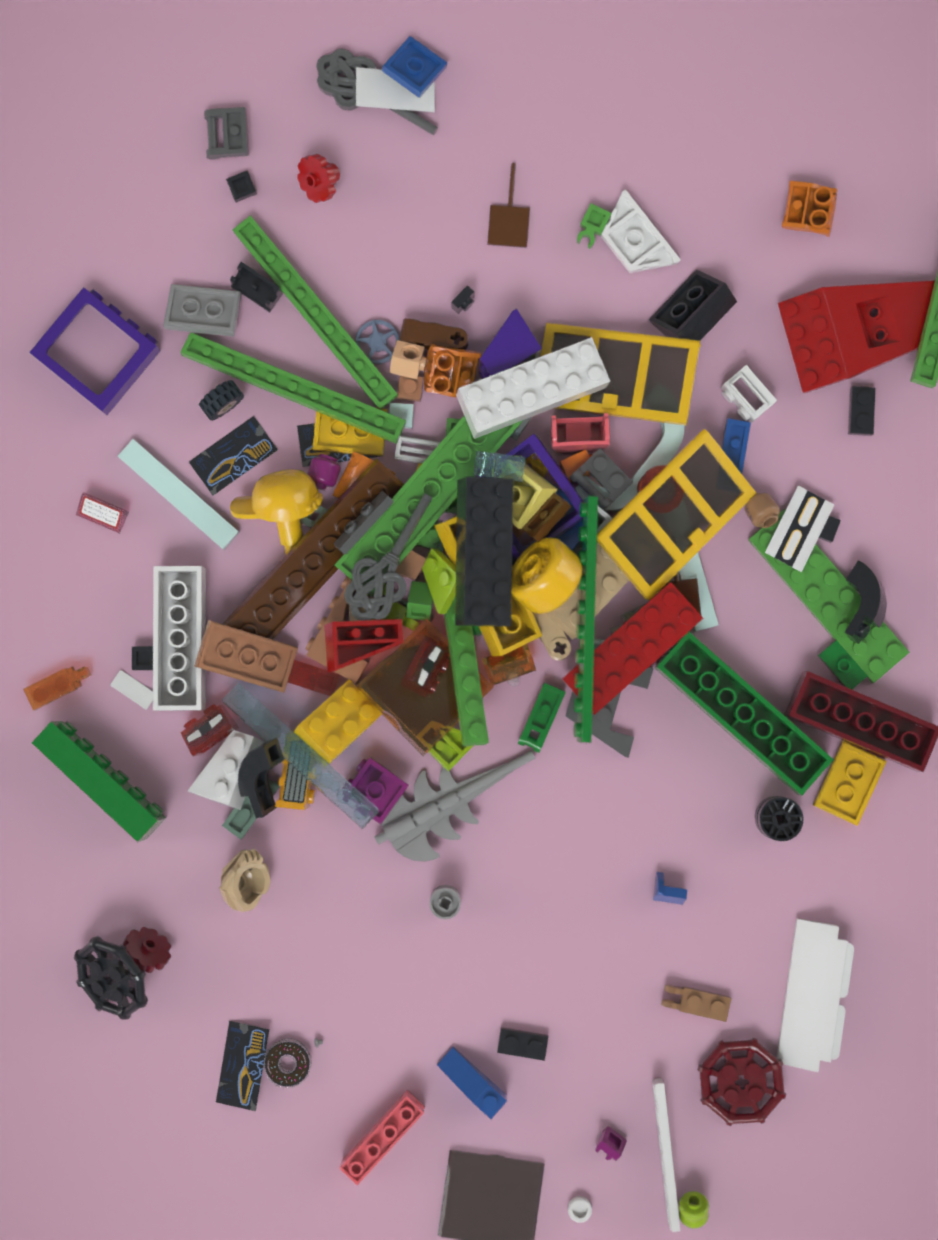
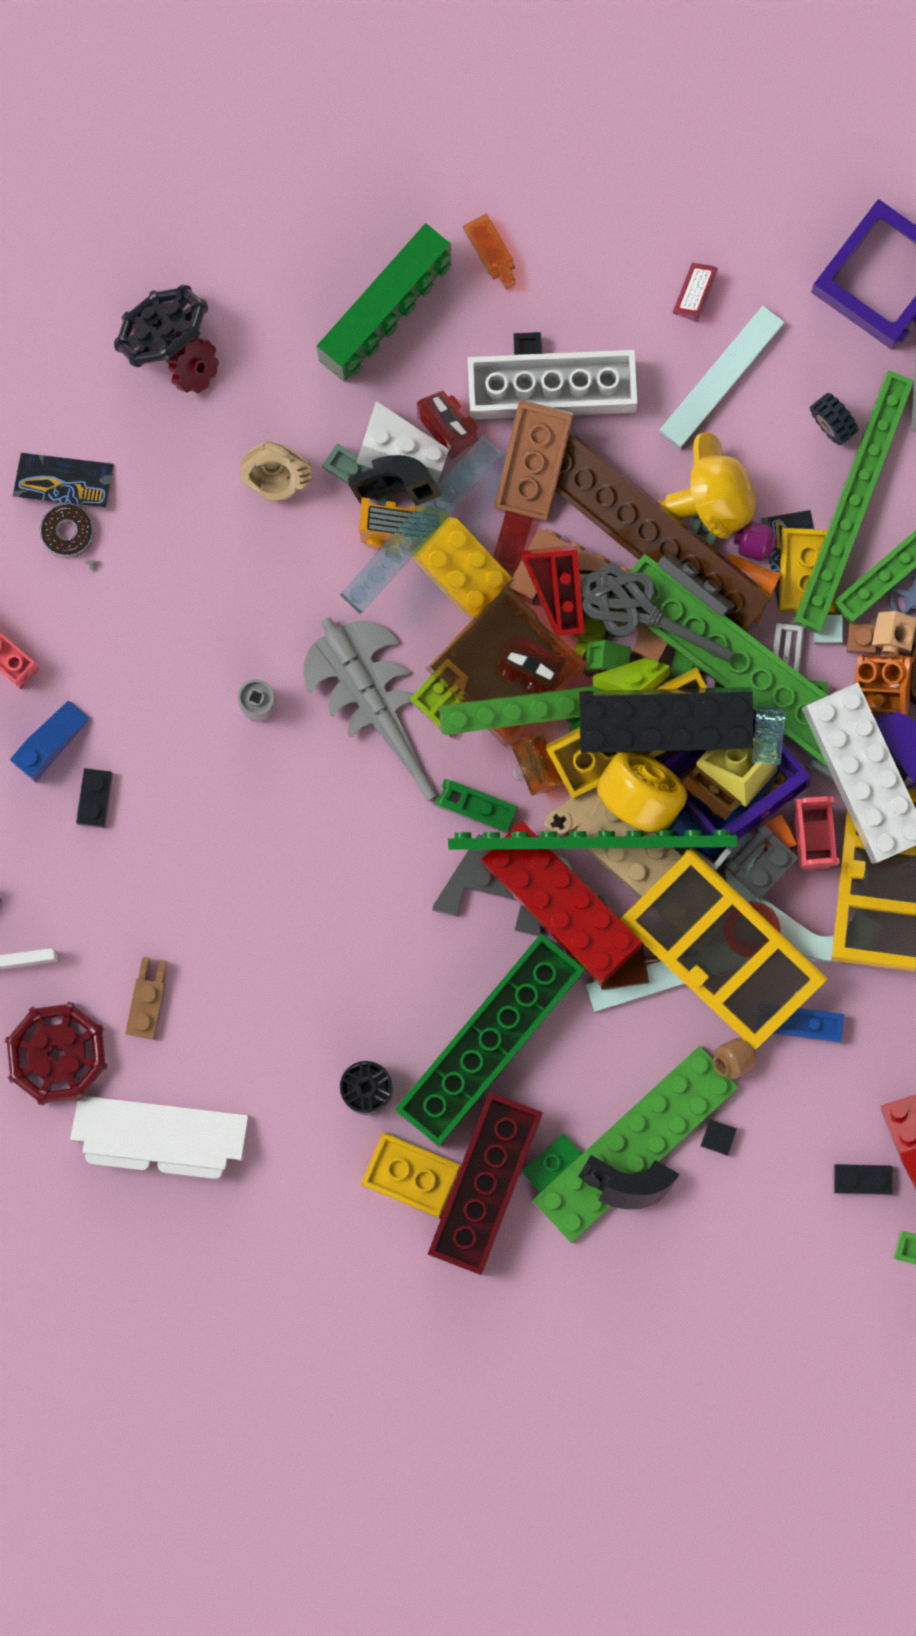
camera: 90 degrees right, 5 degrees down
(133, 689) = (491, 336): white sticker -> none
(233, 455) = (770, 438): black sticker -> none
(378, 786) = (386, 617): magenta plate -> none
(668, 894) = (273, 960): blue tile -> none
(745, 410) = (882, 1047): white window -> none
(799, 528) = (714, 1104): sticker -> none

